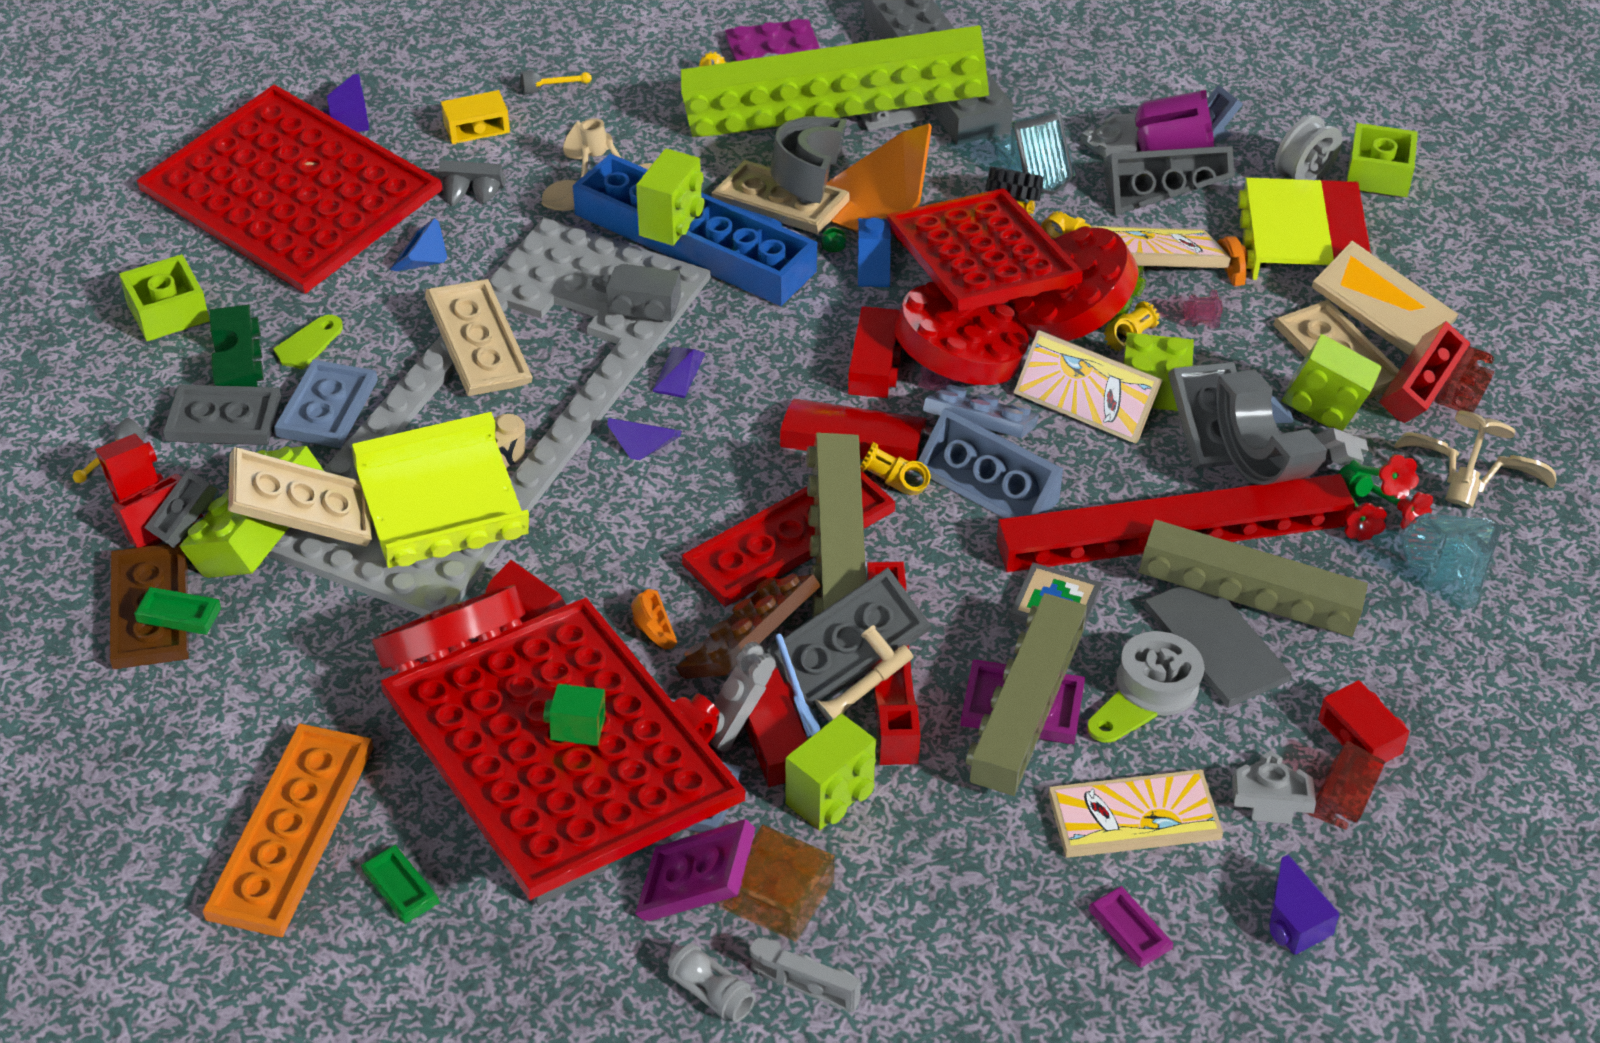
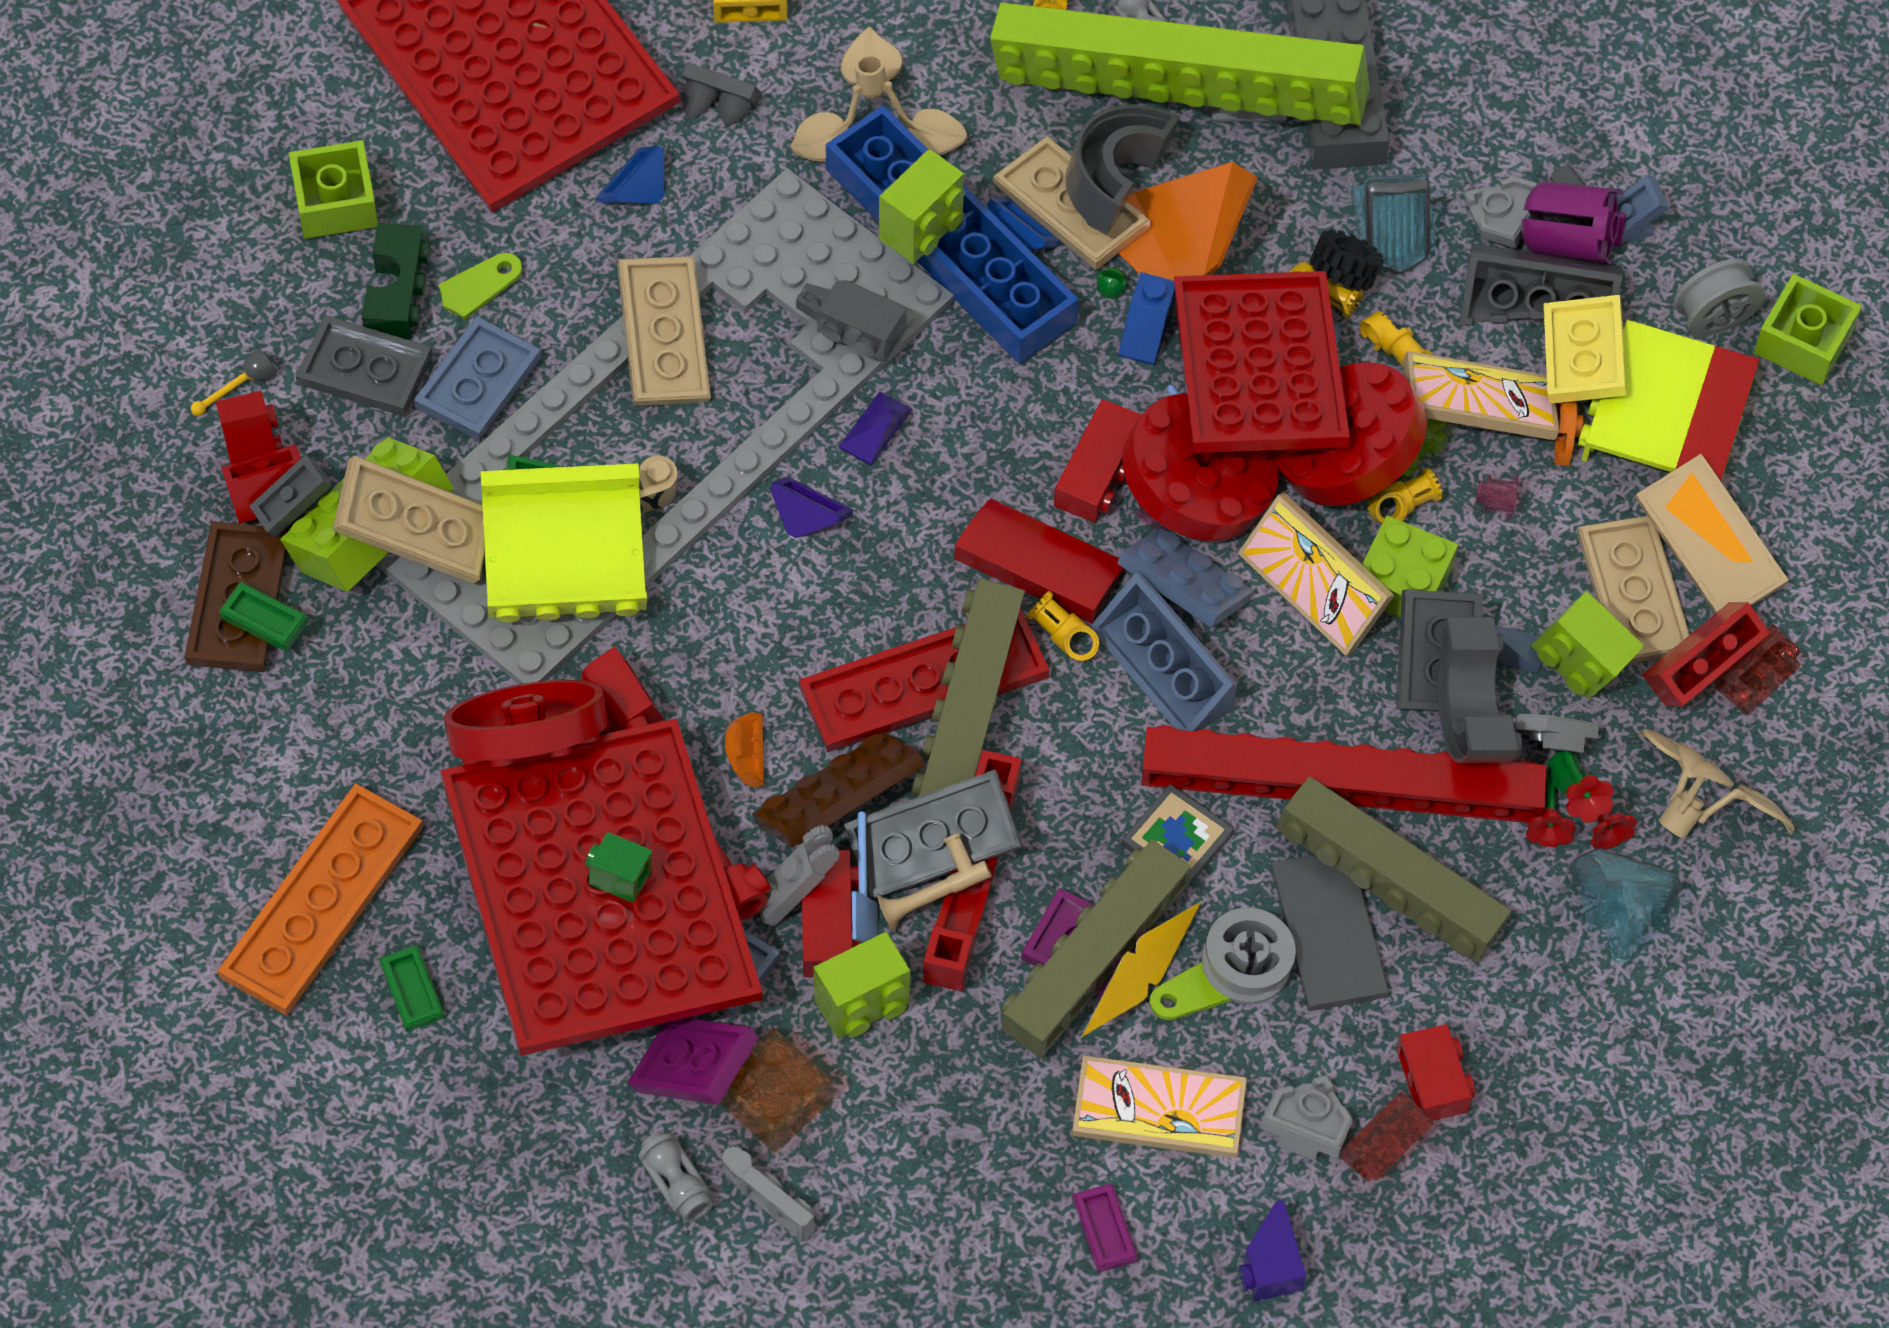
camera: 15 degrees right, 15 degrees up
(1074, 701) = (1137, 970): none -> yellow sticker
(1226, 199) = (1584, 349): none -> light yellow plate

